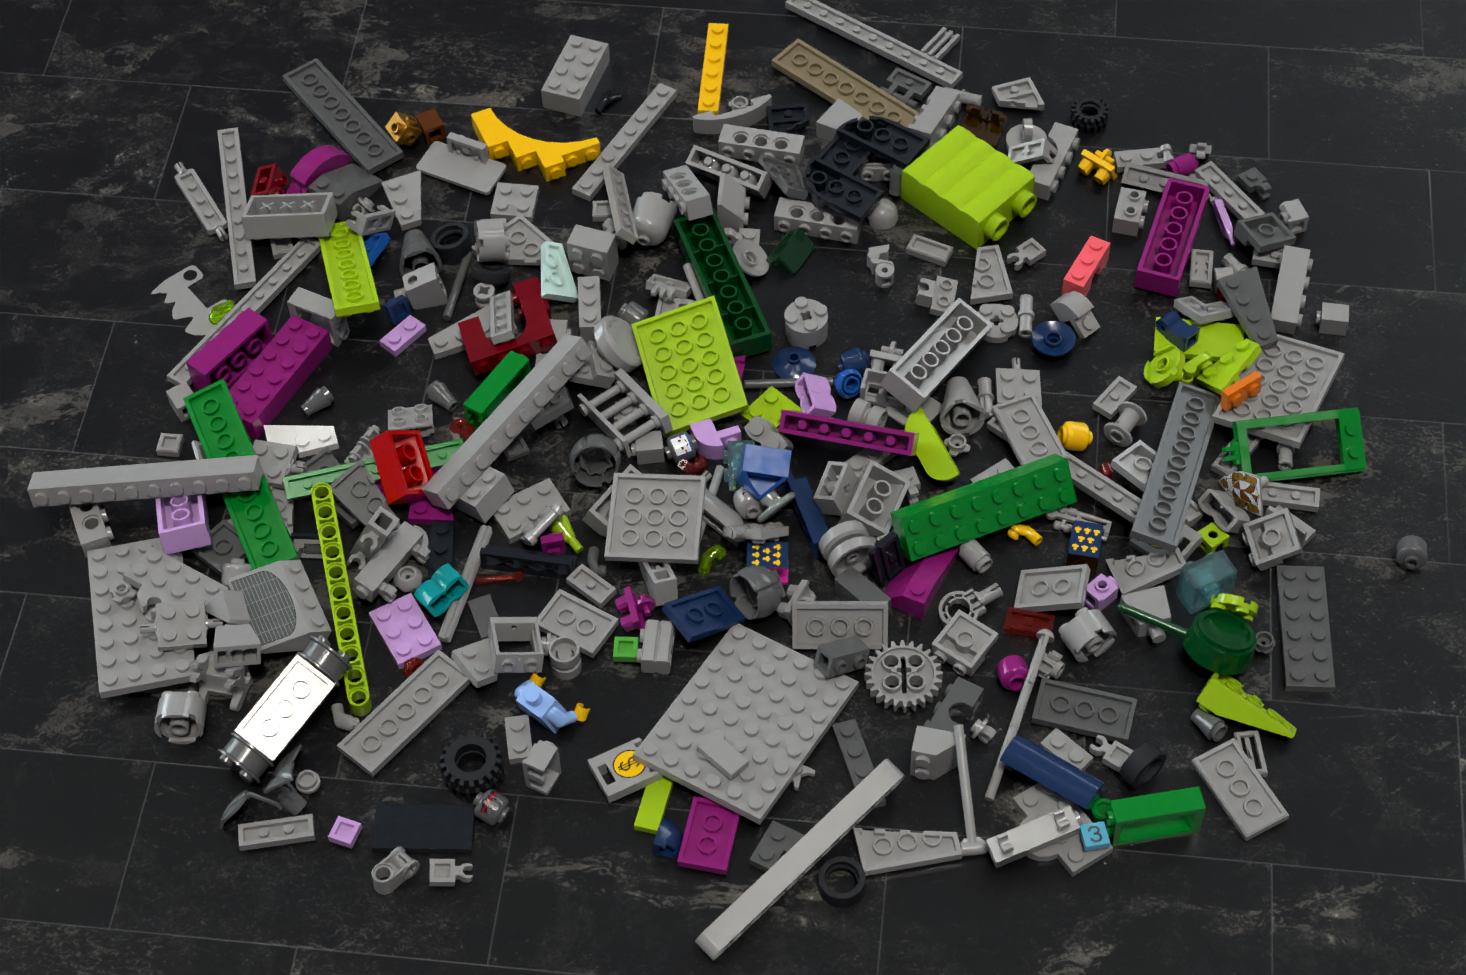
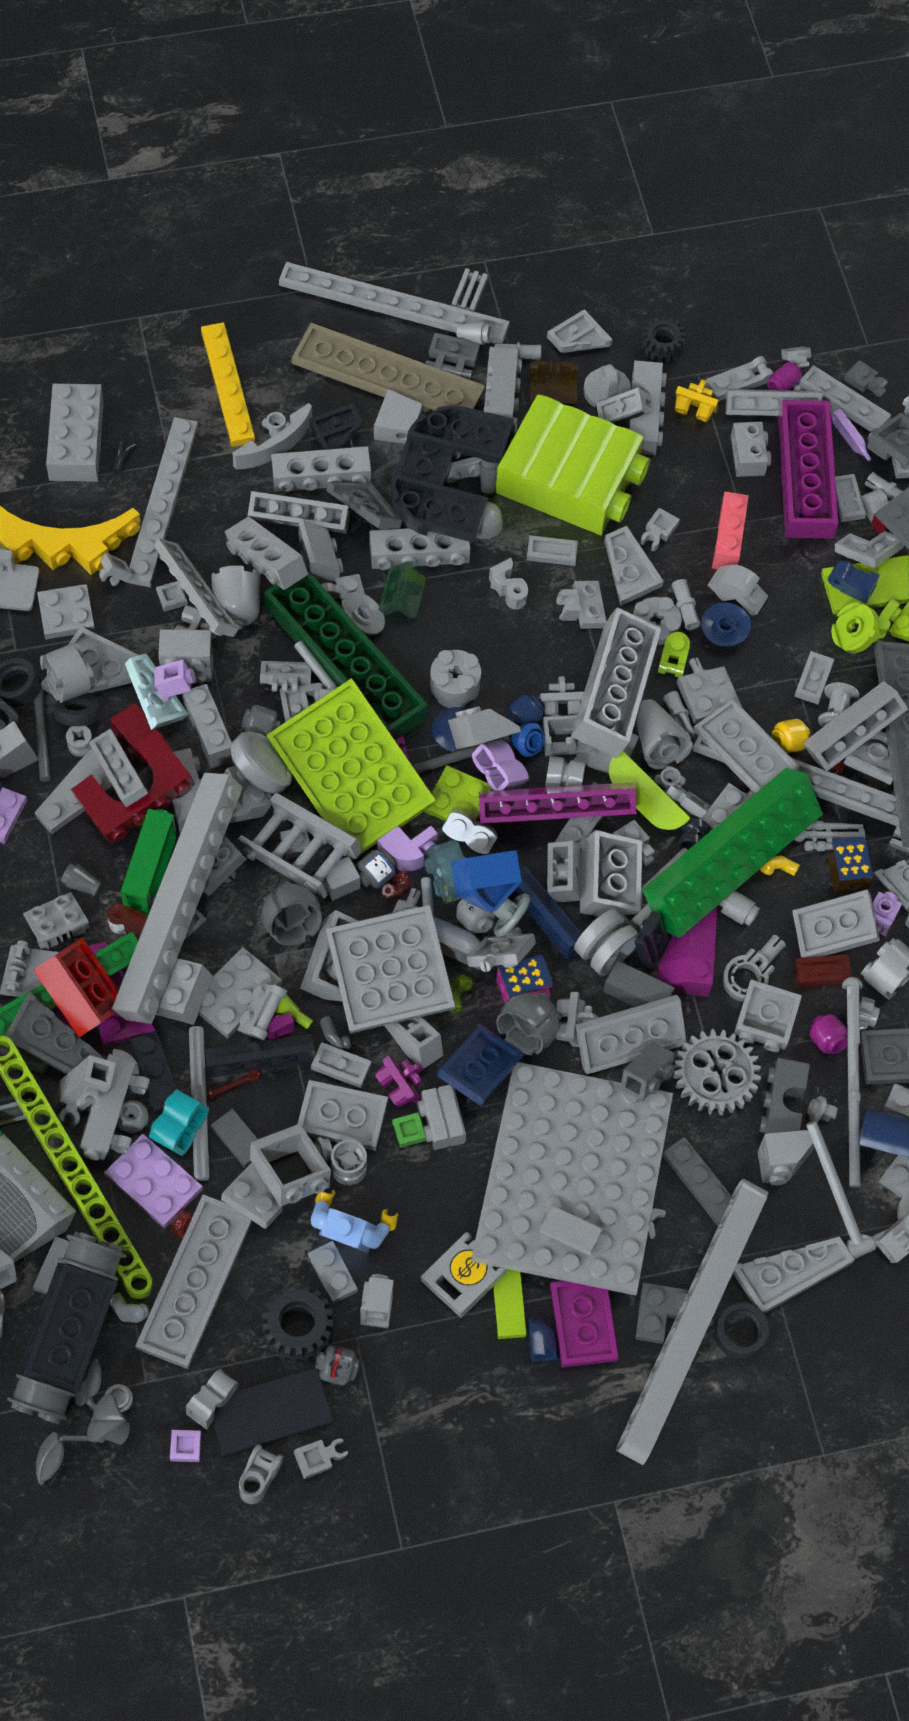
camera: 25 degrees left, 10 degrees up
(276, 832) = (108, 1471): light grey plate -> none
(386, 796) = (213, 1395): none -> light grey leg
(564, 177) = (114, 567): none -> light grey tile
(572, 264) = (173, 679): none -> lavender brick
(809, 359) = (479, 726): none -> light grey slope
(930, 72) = (477, 332): none -> light grey cone
(966, 465) = (692, 804): none -> light grey plate
(1004, 345) = (677, 647): none -> lime plate
(1129, 436) = (855, 726): none -> light grey brick

